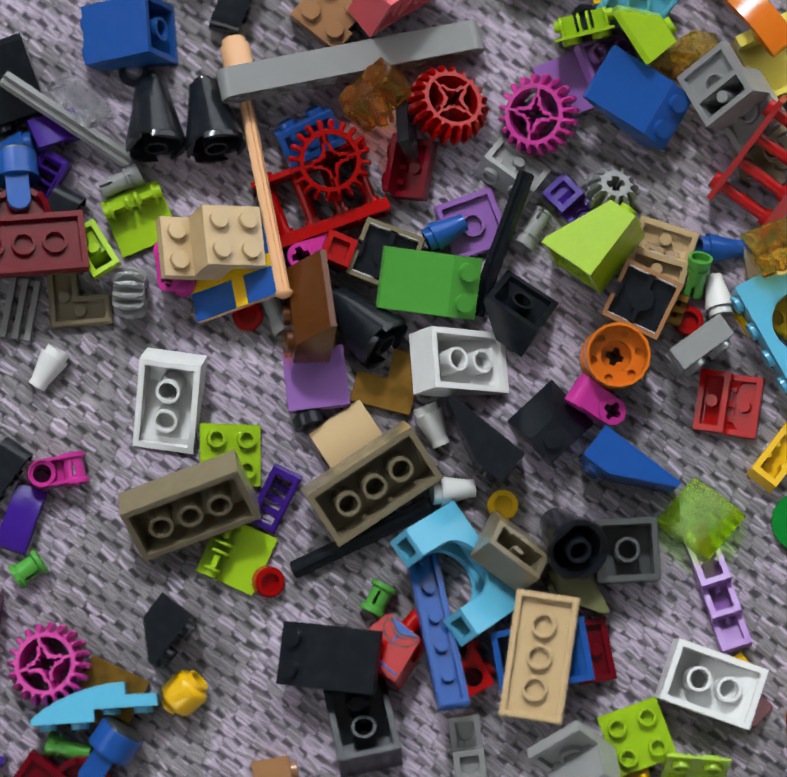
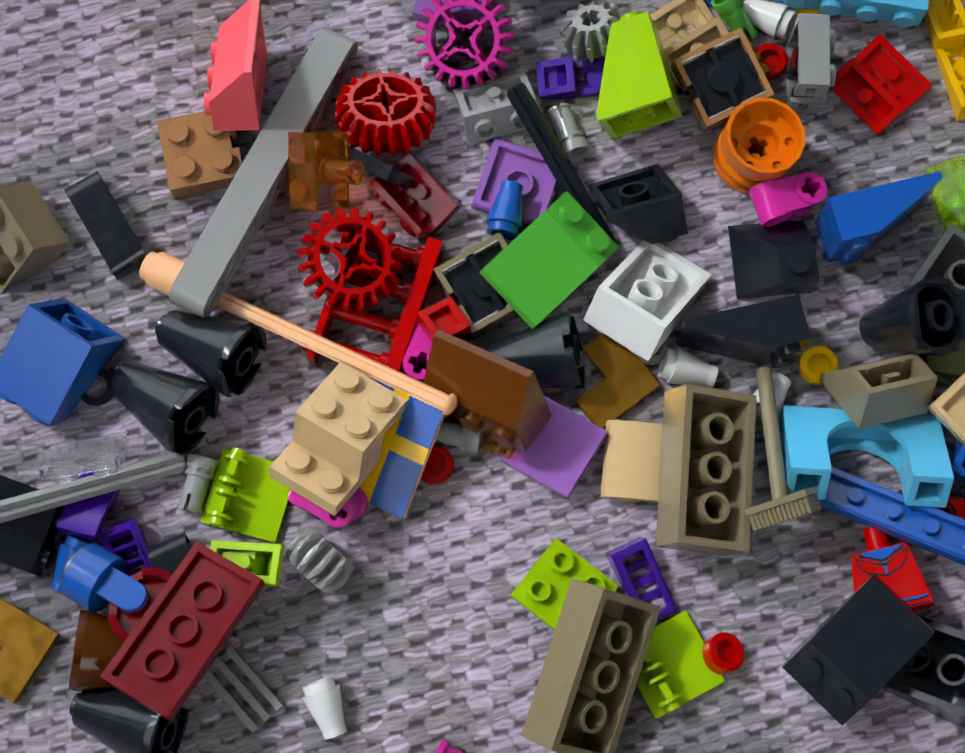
camera: 50 degrees left, 5 degrees down
(70, 309) = (285, 637): dark tan tile -> none
(169, 400) = (459, 609): white slope -> none
(289, 128) = (285, 280): blue bracket -> none
(307, 420) = (589, 487): black tile -> none
(376, 532) = (741, 565): black axle -> none
(378, 598) = (825, 542): bright green bush -> none
(381, 545) = (782, 506): none -> dark tan piece

